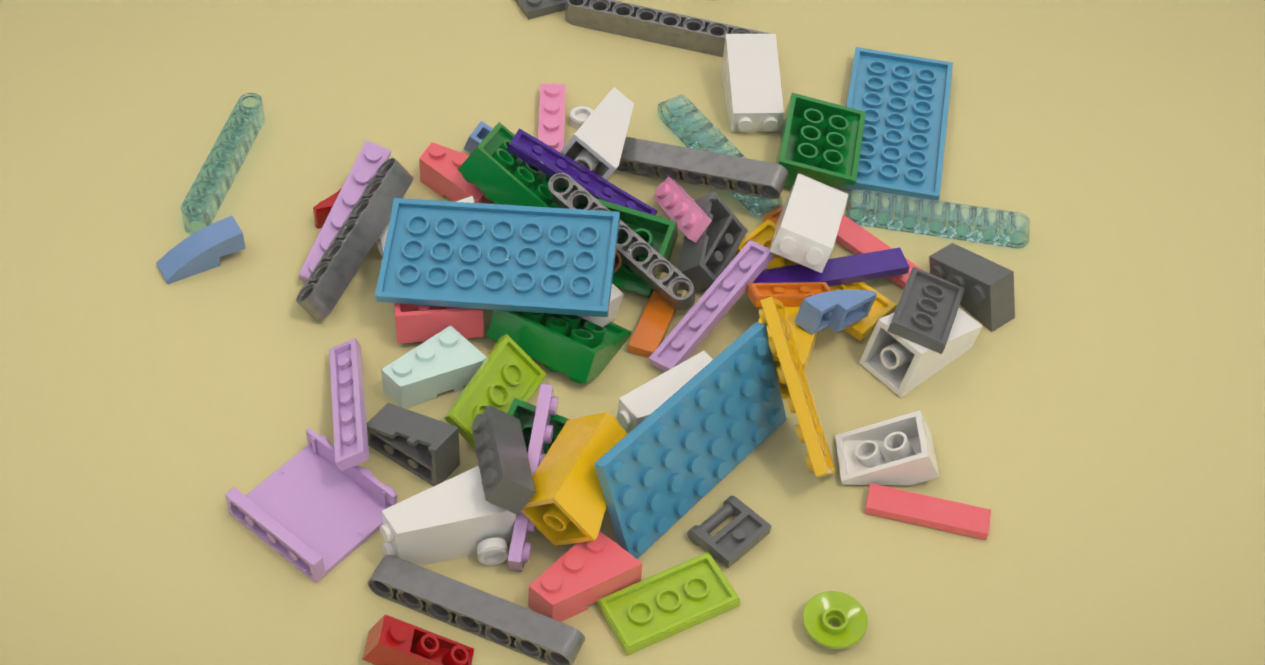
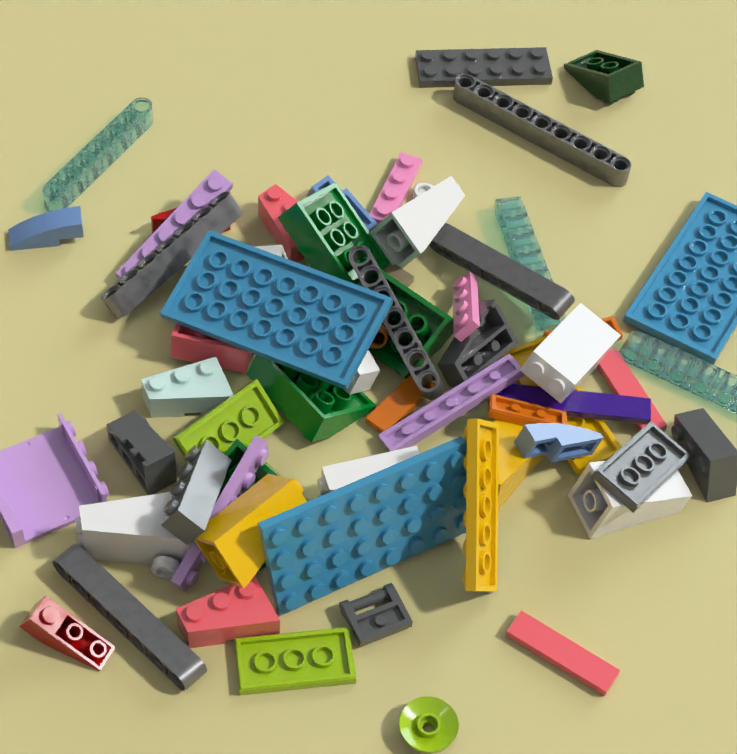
camera: 20 degrees right, 5 degrees up
(348, 405) = (101, 402): lavender plate -> none
(553, 162) = (385, 250): dark purple tile -> none
(752, 83) = (589, 202): white slope -> none
(820, 141) = (624, 277): green slope -> none
(888, 452) = (550, 588): white slope -> none

